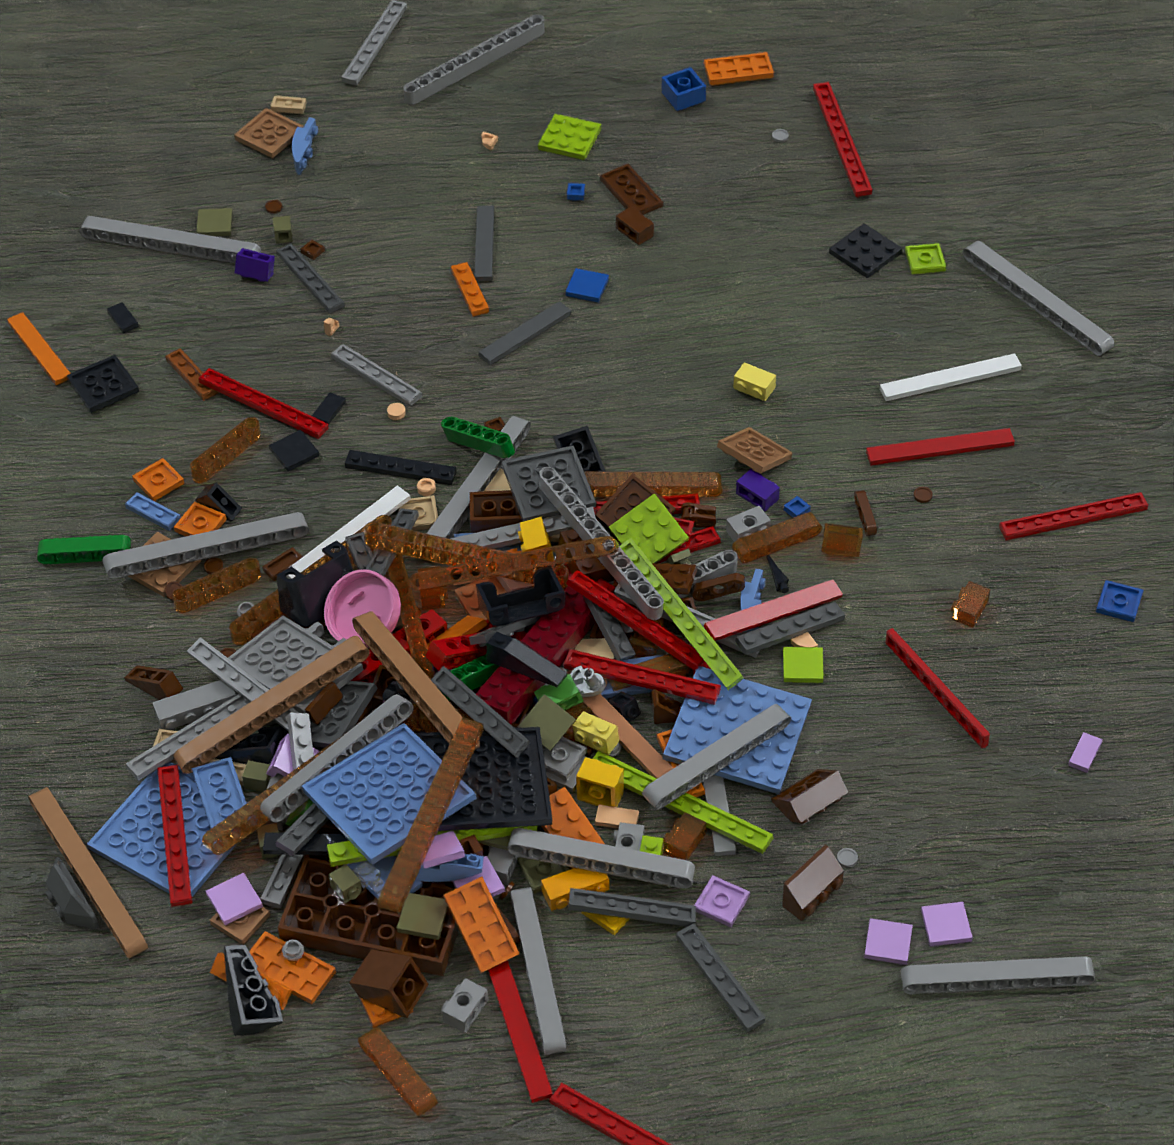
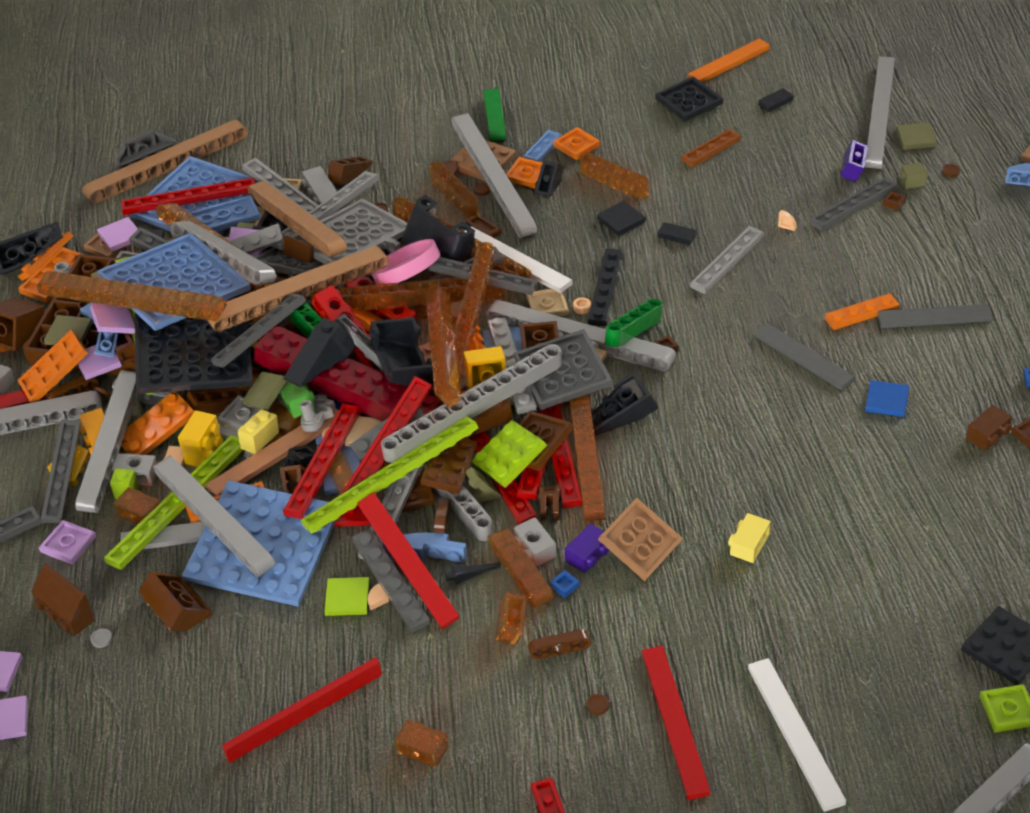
camera: 90 degrees right, 5 degrees down
(263, 403) = (675, 191): red tile -> none
(396, 411) = (679, 276): light nougat tile -> none

